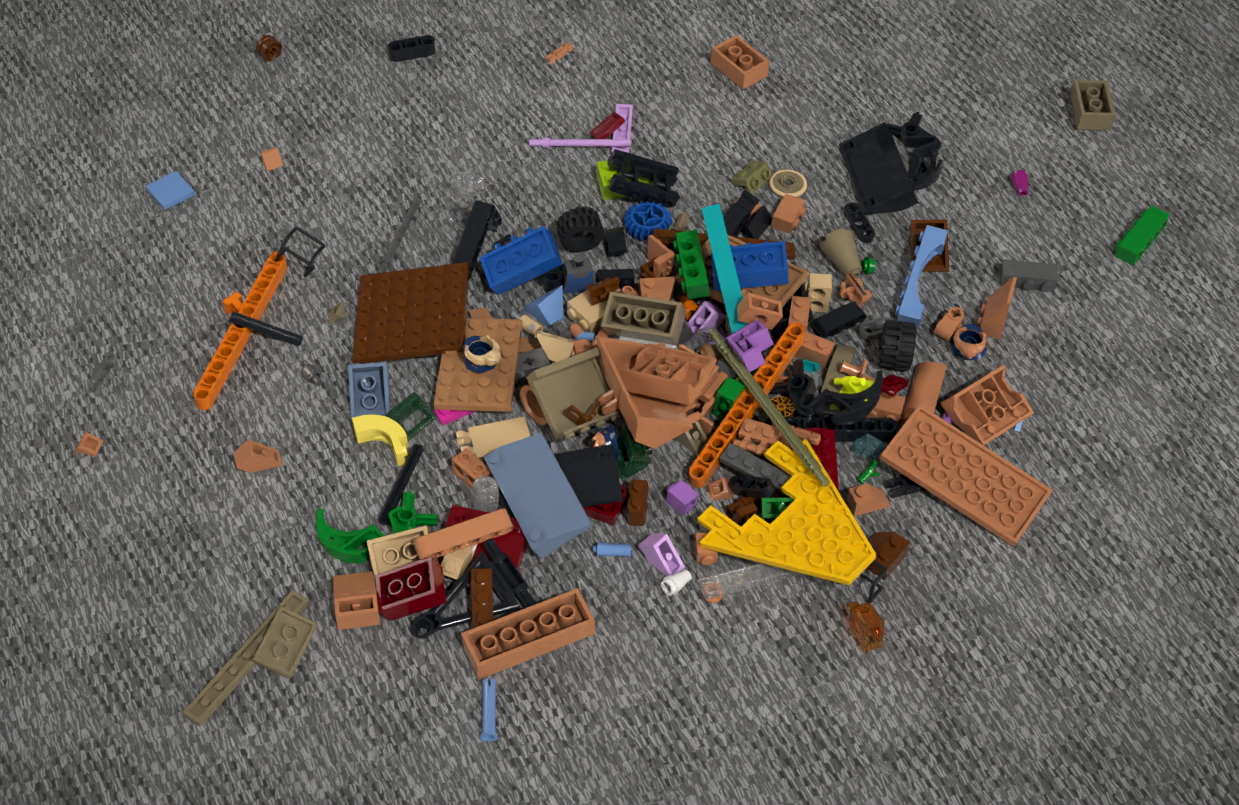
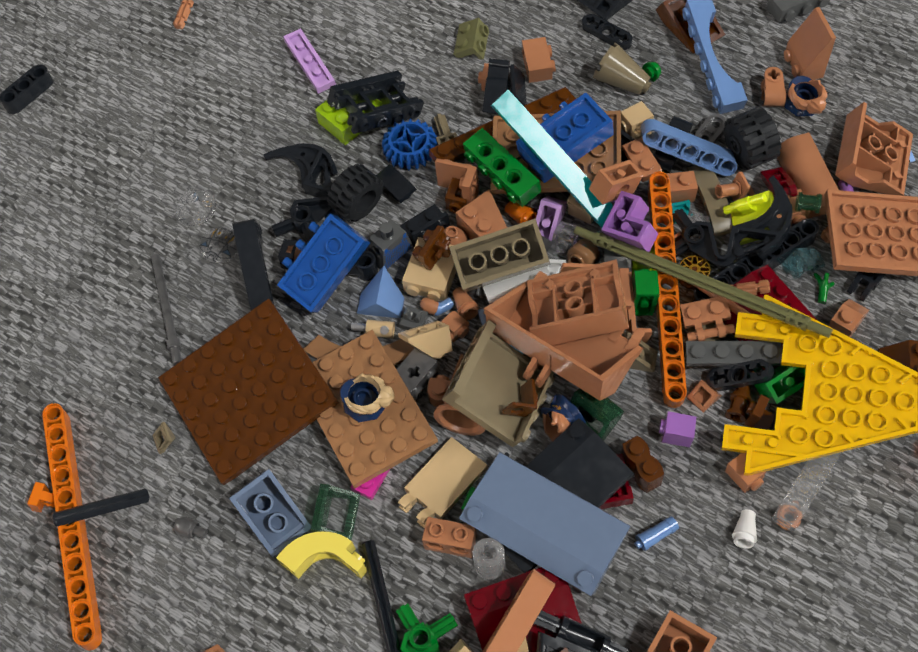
camera: 25 degrees left, 10 degrees up
(282, 250) = (54, 409): black piece -> none
(547, 142) = (243, 116): lavender bar -> none
(566, 199) = (311, 209): none -> black piece
(607, 126) = (293, 66): dark red tile -> none
(662, 554) = (709, 507): lavender slope -> none
(778, 179) = (509, 38): dark tan wheel -> none
(840, 316) = (682, 140): none -> medium blue beam
(853, 290) = (660, 104): nougat hips -> none
(899, 406) = (808, 202): none -> clear green bush

